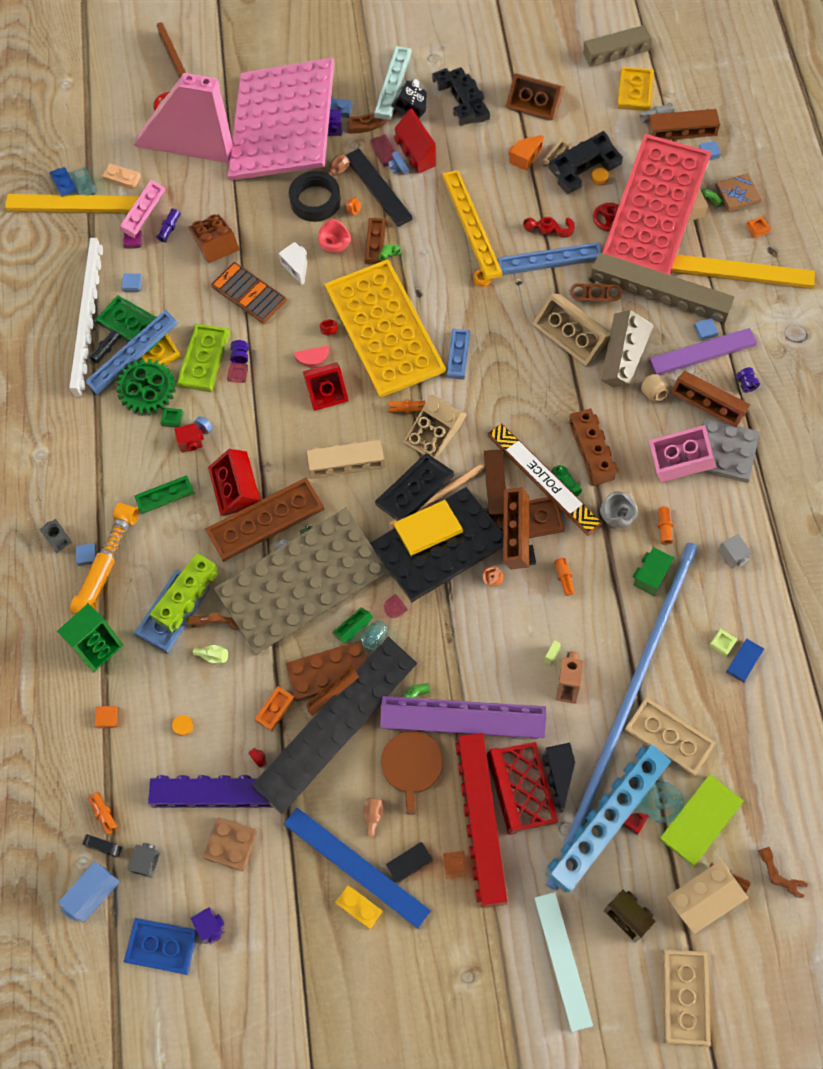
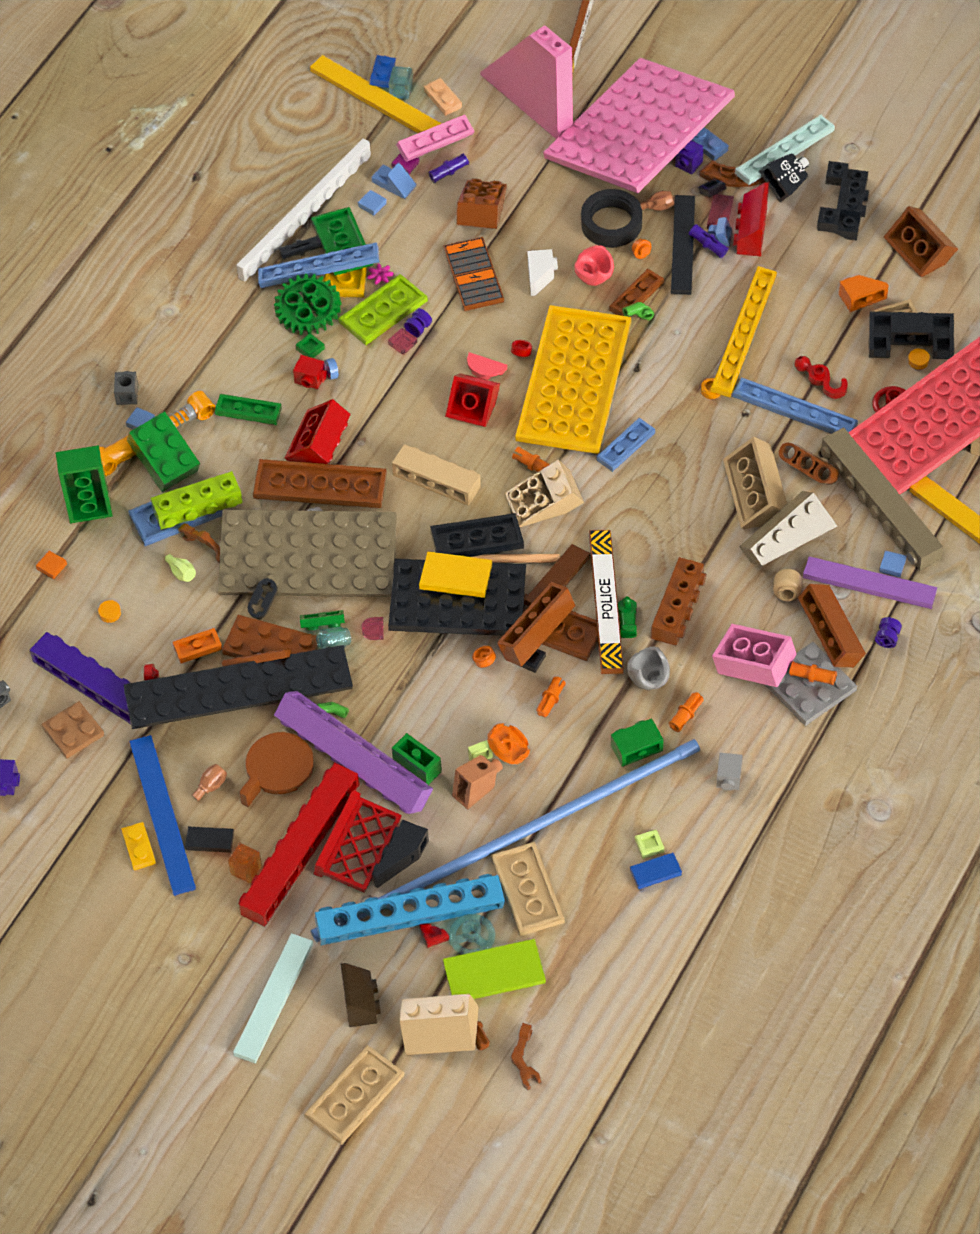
camera: 35 degrees right, 10 degrees down
(128, 570) = (163, 451): none -> green brick
(135, 257) = (394, 180): none -> medium blue slope
(181, 332) = (380, 273): none -> dark pink plant
(291, 639) = (267, 601): none -> black beam
(366, 136) = (712, 188): none -> black tile
(395, 174) = (708, 241): none -> dark purple pin
(515, 691) = (417, 758): none -> green brick
(568, 633) = (508, 743): none -> orange tile
(730, 441) = (812, 673): none -> orange pin

